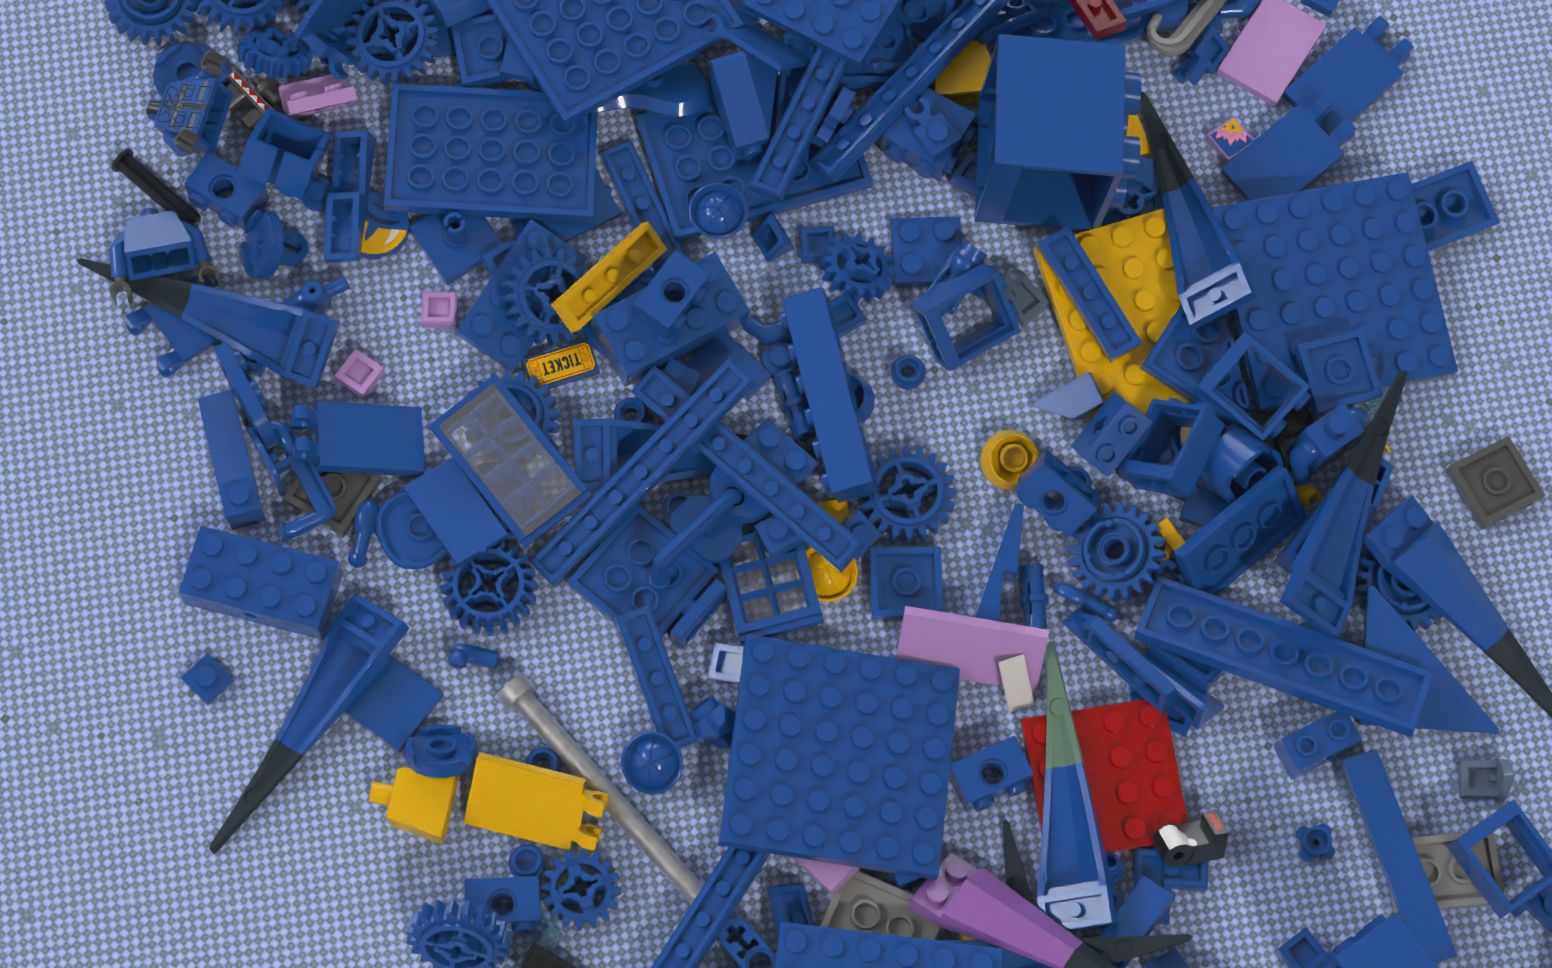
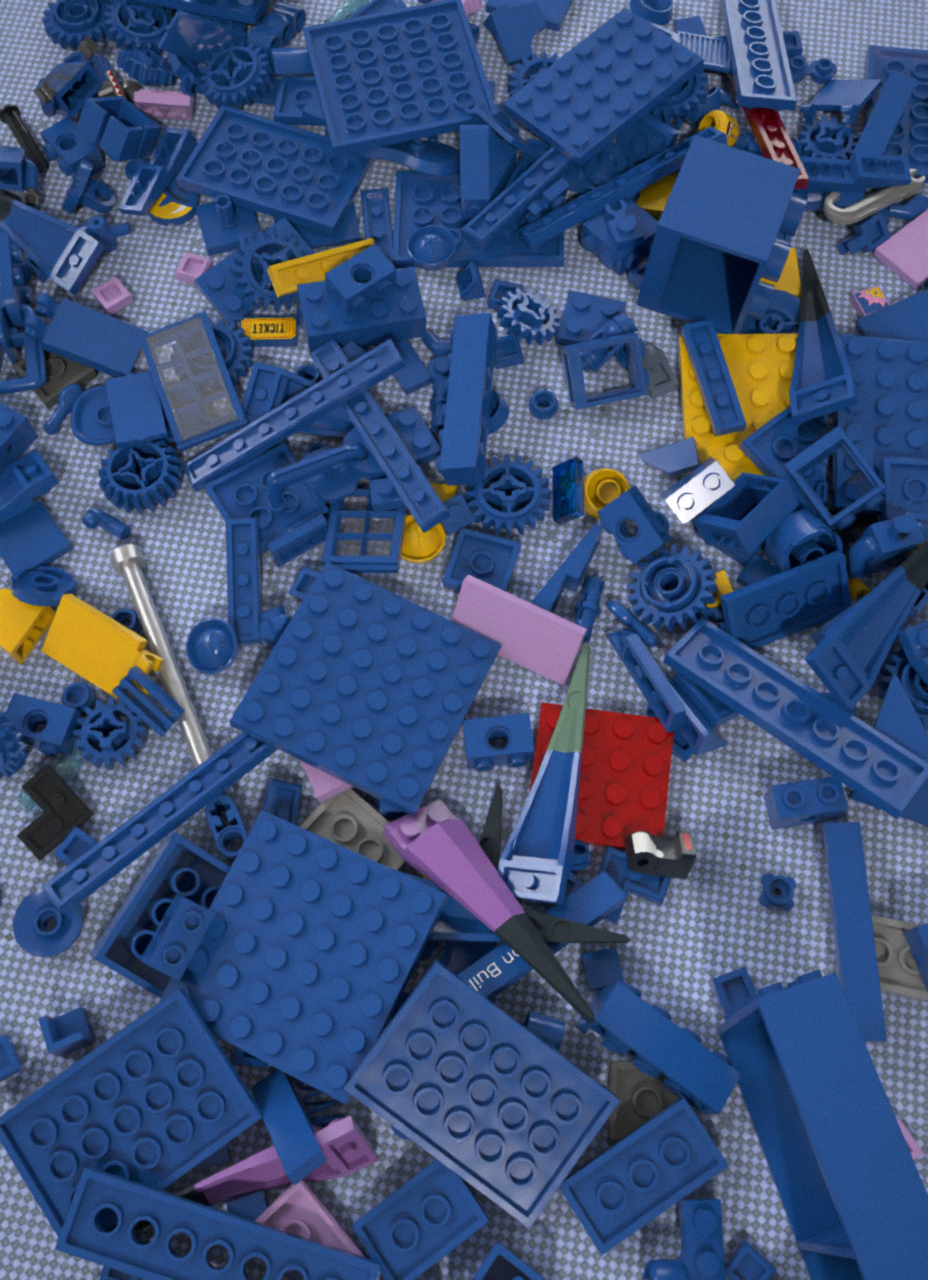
camera: 25 degrees right, 5 degrees down
(609, 856) = (144, 704): none -> blue tile
(970, 469) = (568, 491): none -> clear blue tile
(1016, 683) = (547, 671): white sticker -> none

